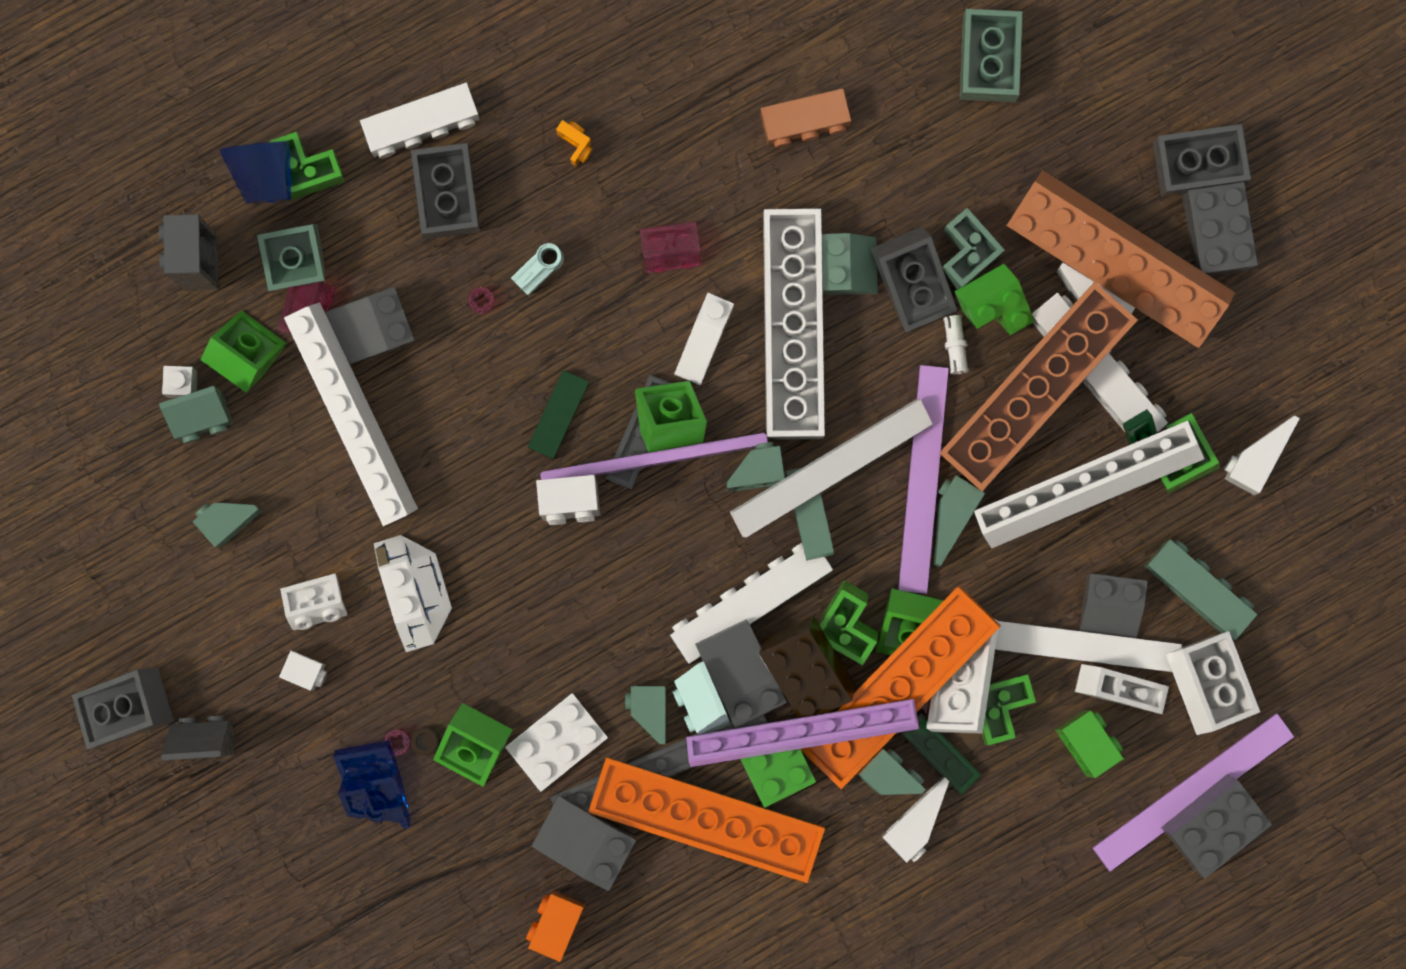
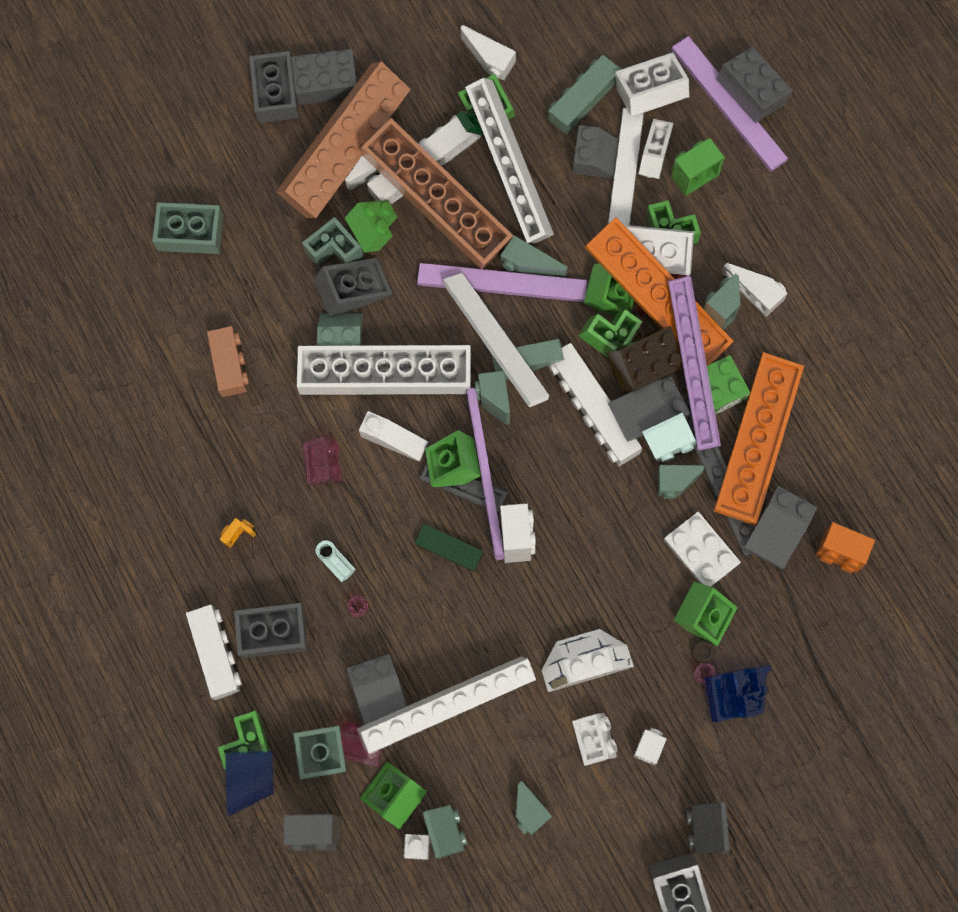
camera: 80 degrees left, 10 degrees down
(942, 756) = (709, 268): dark green tile -> none
(956, 344) = (402, 257): white pin -> none

